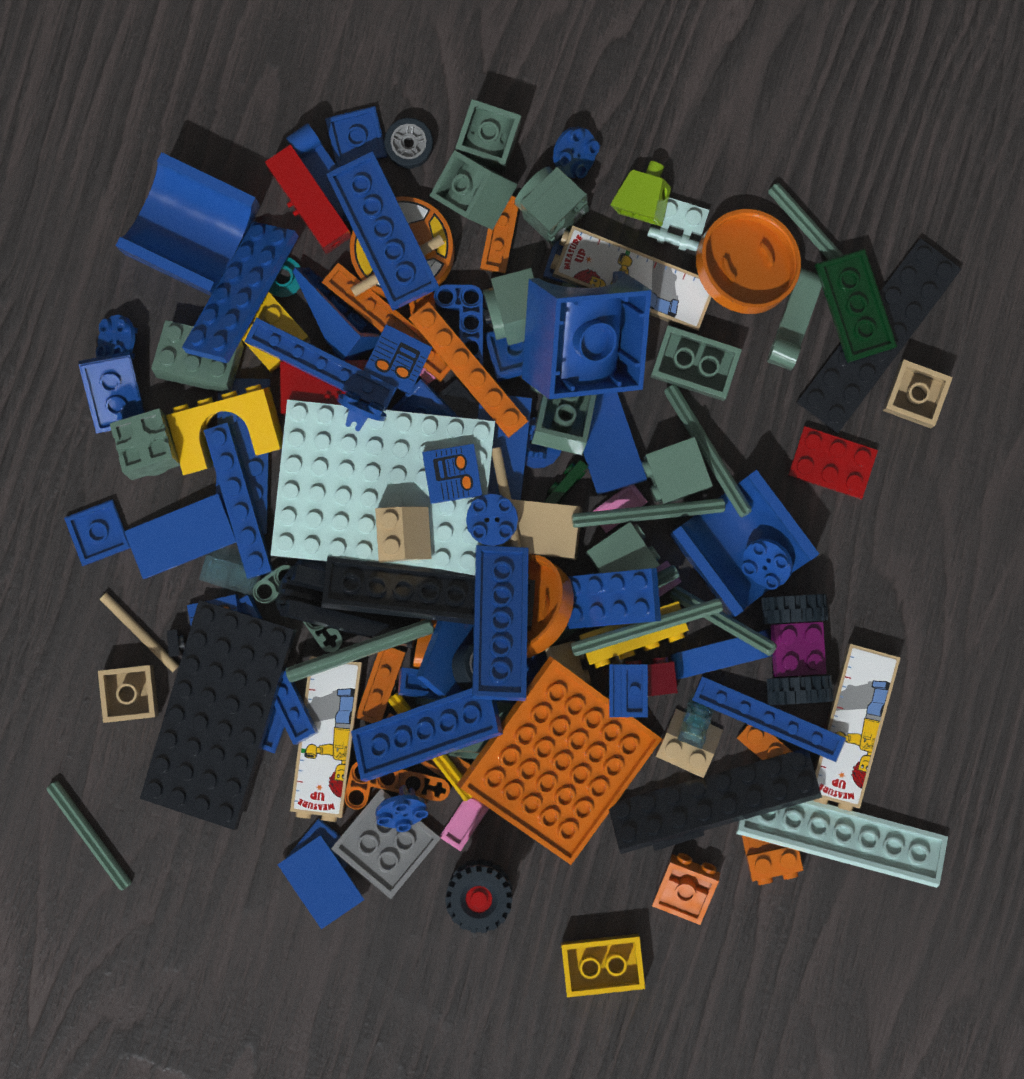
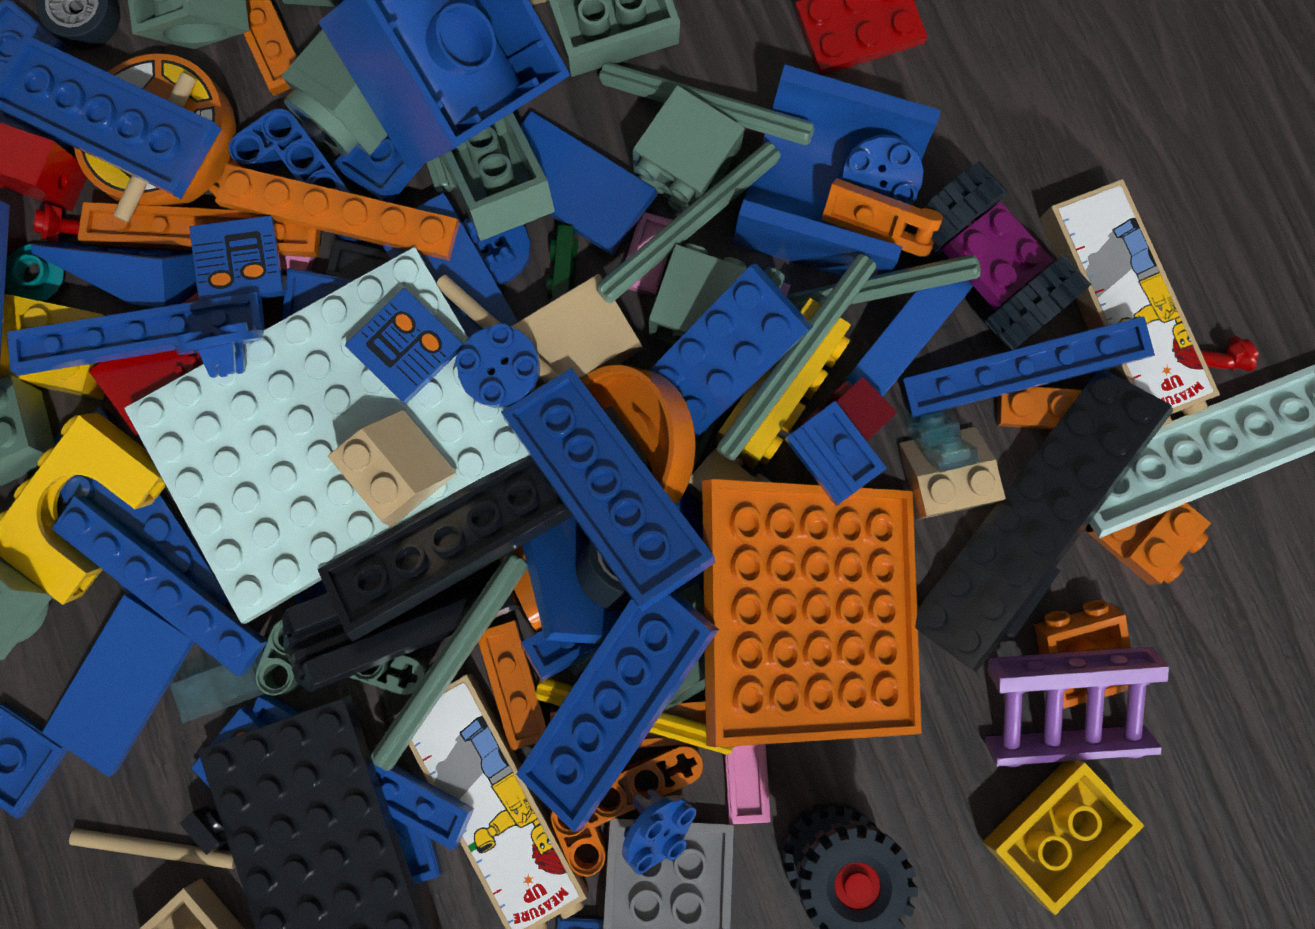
camera: 40 degrees left, 5 degrees down
(311, 255) = (50, 224): none -> red plate
(670, 888) = (1075, 670): none -> medium lavender fence
(747, 586) = (881, 217): none -> orange plate
(890, 796) = (1239, 355): none -> red plate

